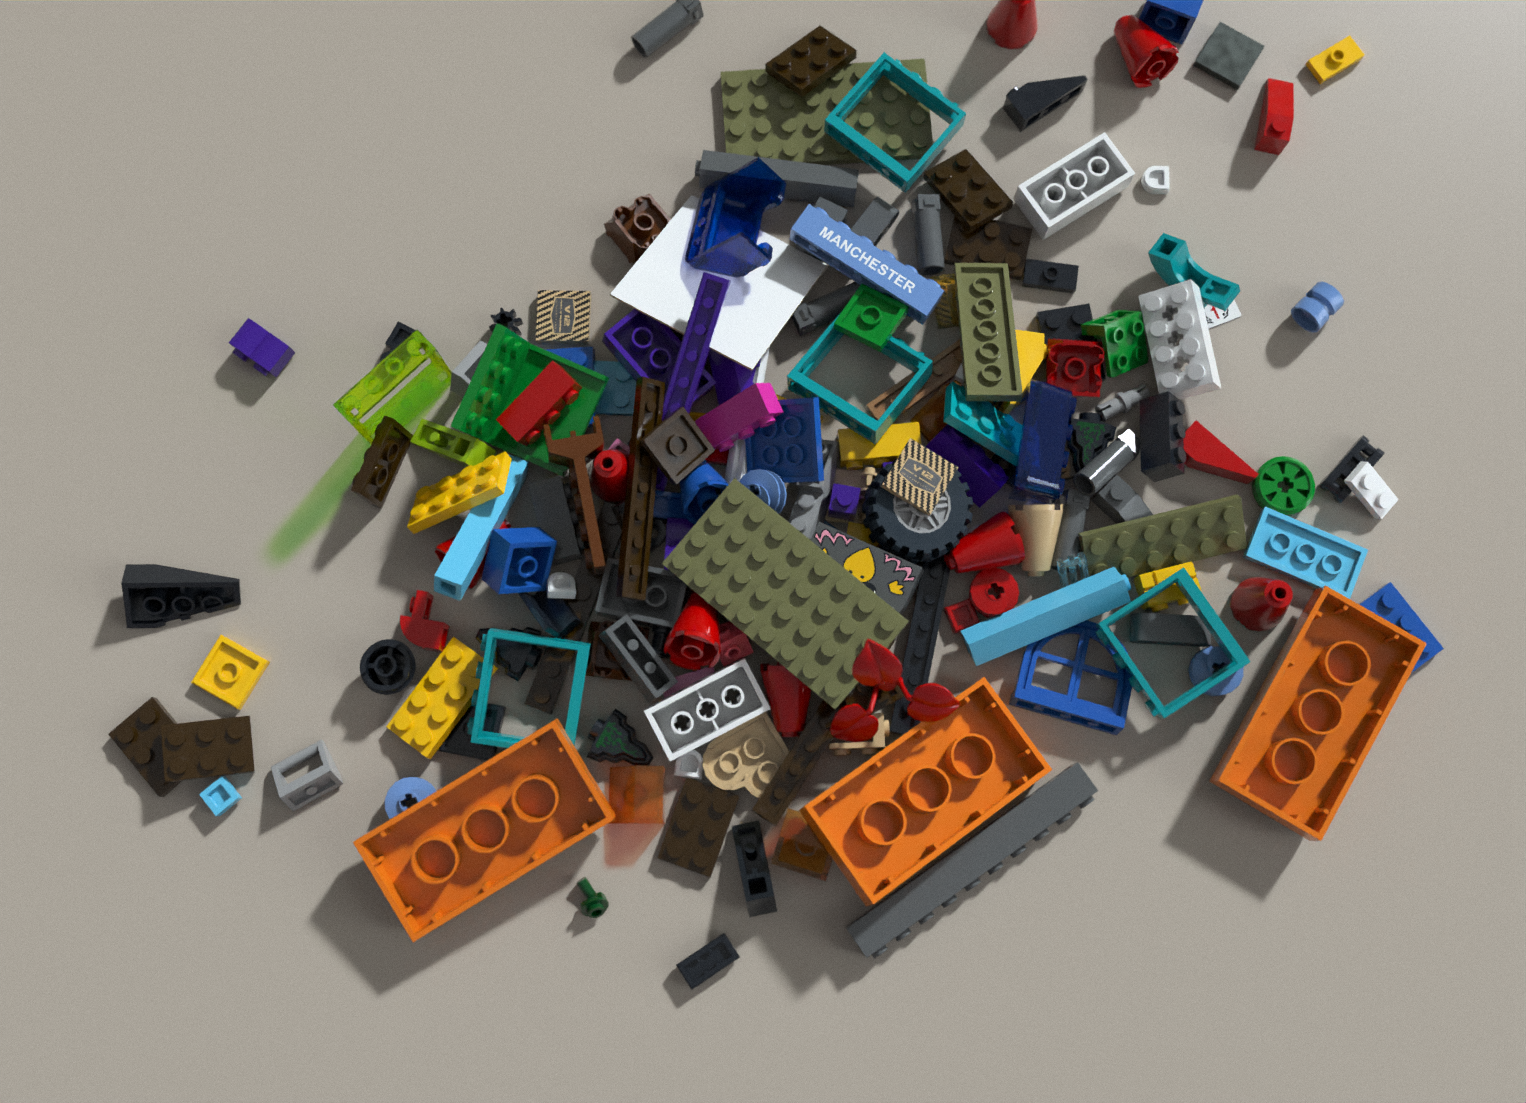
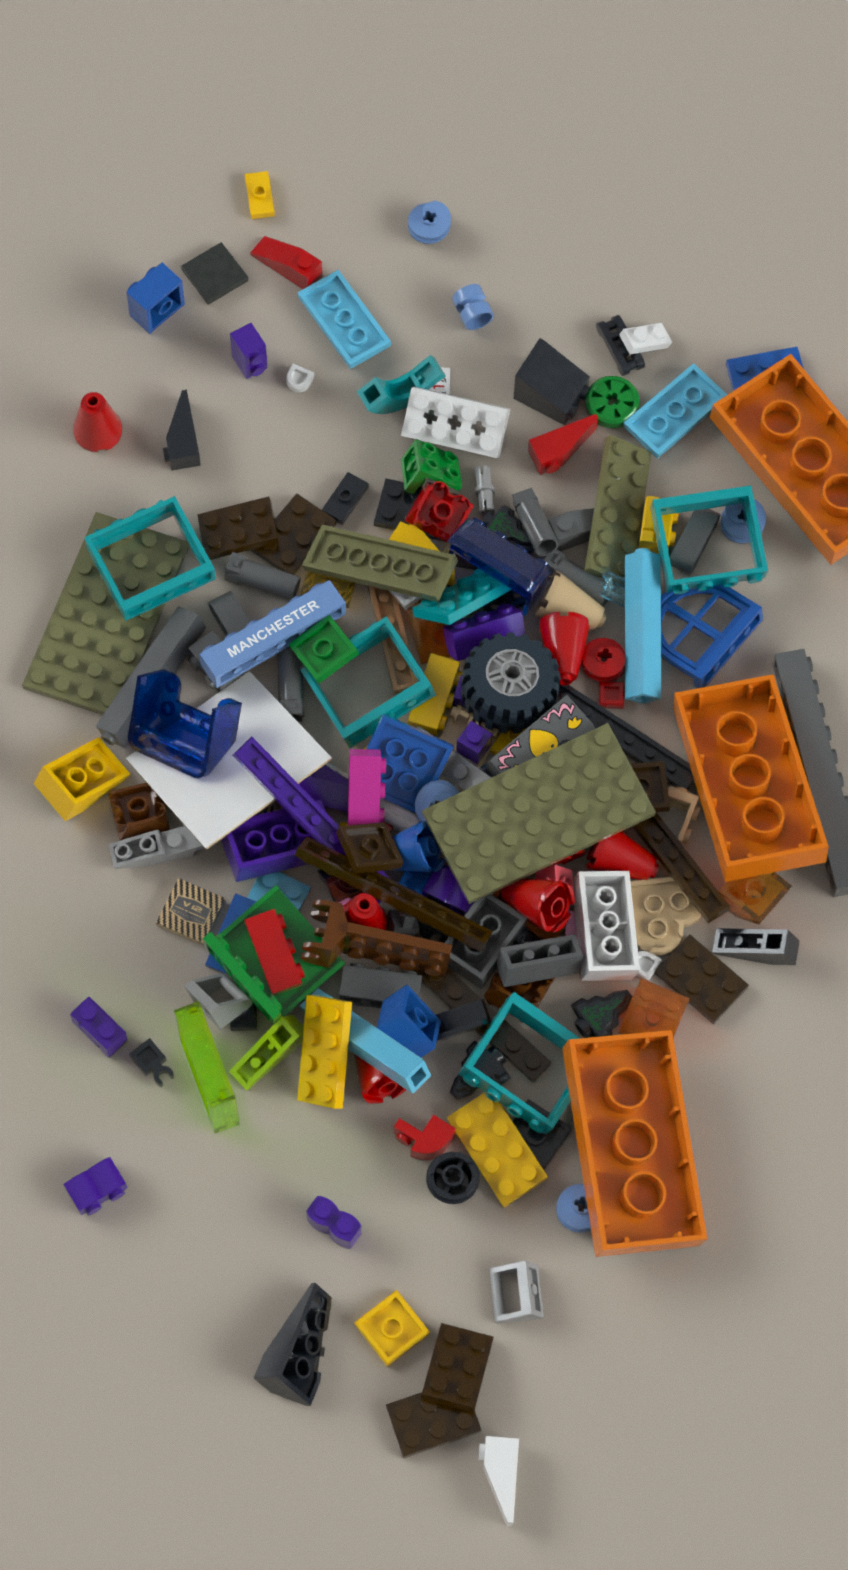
camera: 70 degrees left, 10 degrees down
(123, 831) = (500, 1467): none -> white slope
(220, 796) = (504, 1374): medium azure plate -> none
(304, 581) = (340, 1225): none -> dark purple brick
(382, 462) = (261, 1115): dark brown plate -> none
(413, 283) = (98, 1026): none -> dark purple brick
(510, 317) = (171, 958): black gear -> none
(561, 586) = (444, 1004): white tile -> none
(595, 903) = (732, 1089): dark green plate -> none
(604, 249) = (154, 848): none -> light grey slope
(650, 162) = (80, 778): none -> yellow slope
(708, 961) = (818, 1014): black plate -> none
(810, 61) = (53, 603): dark brown plate -> none
(883, 670) = (641, 758): red plant -> none
(919, 477) = (489, 663): tile -> none
(1073, 186) = (277, 443): white brick -> none
(1144, 51) = (179, 335): red cone -> none
(1157, 116) = (248, 351): none -> dark purple brick
(1162, 436) = (532, 470): black brick -> none
(1241, 193) = (344, 319): none -> medium azure plate
(1260, 602) = (702, 460): red cone -> none
(1271, 415) = (550, 383): none -> black slope
(1389, 227) = (429, 222): none -> medium blue piece

